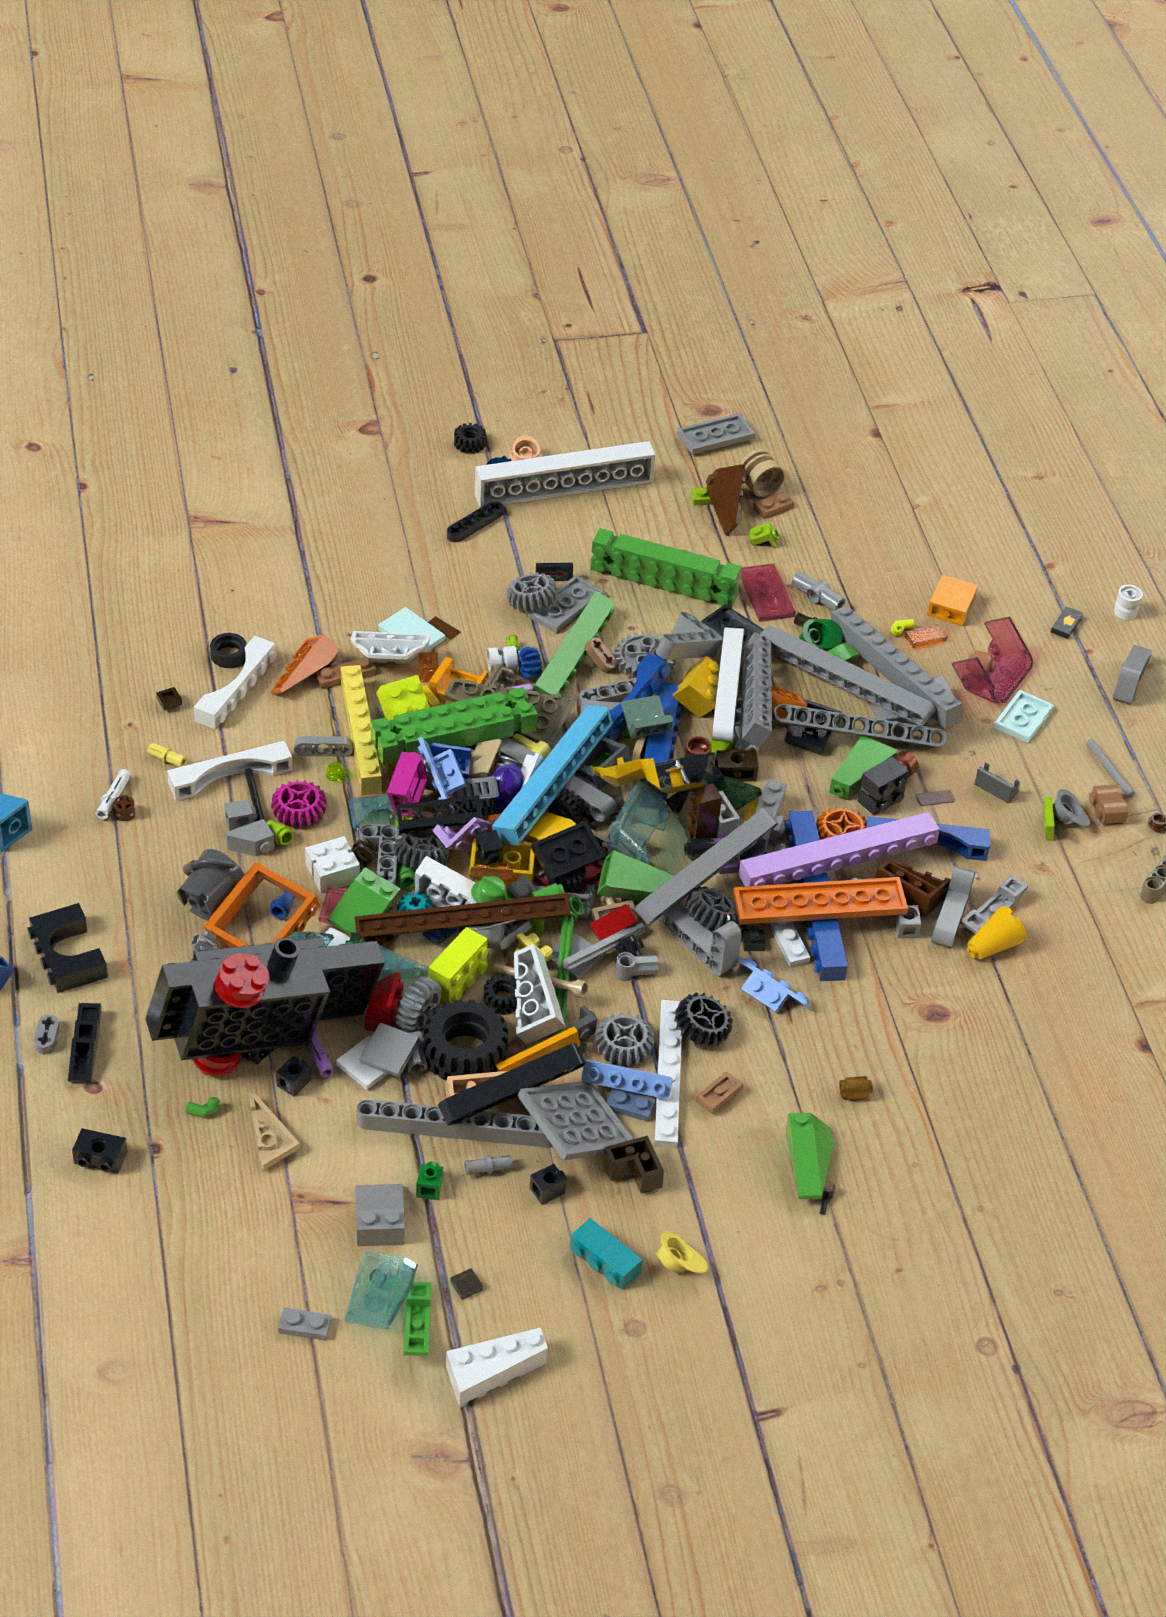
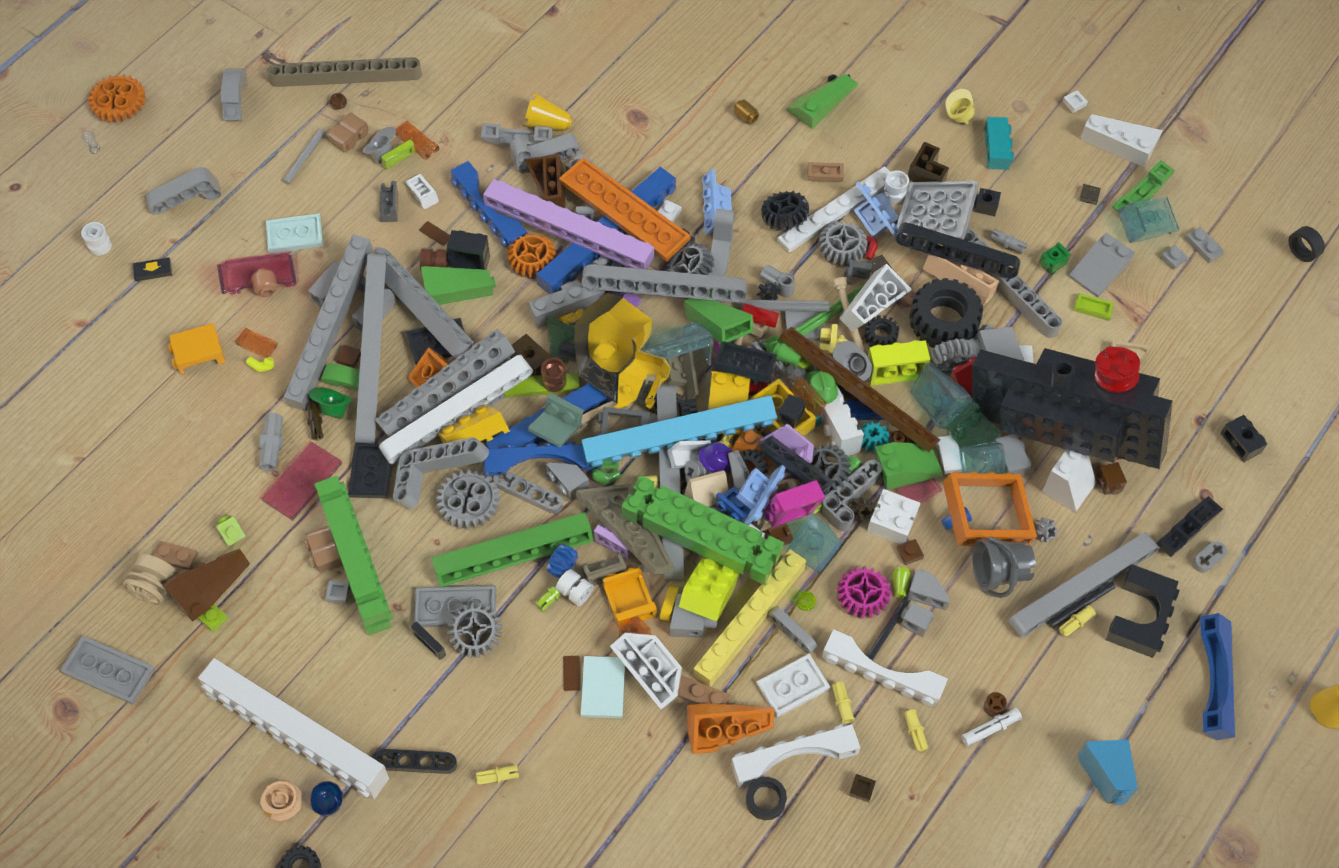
camera: 130 degrees left, 15 degrees up
(114, 906) = (1077, 621): none -> light yellow axle
(122, 923) = (1082, 604): none -> black bar
(132, 934) = (1083, 585): none -> light grey beam
(199, 1393) = (1314, 240): none -> black tyre
(237, 734) = (843, 702): none -> light yellow axle
(284, 721) = (793, 685): none -> white tile
(294, 860) = (910, 552): none -> reddish brown plate
(321, 1284) = (1174, 257): none -> light grey plate
(349, 1171) = (1093, 306): none -> lime tile
(415, 547) = (497, 775): none -> light yellow axle
(554, 1043) = (906, 270): light orange tile -> none
(585, 1372) = (1075, 101): none -> white plate
(594, 1055) = (872, 247): none -> red arm
(600, 654) = (501, 524): medium nougat beam -> none
(641, 1120) = (896, 186): none -> white wheel
(992, 813) = (423, 192): none -> white slope
(1057, 845) = (408, 131): none -> clear orange plate

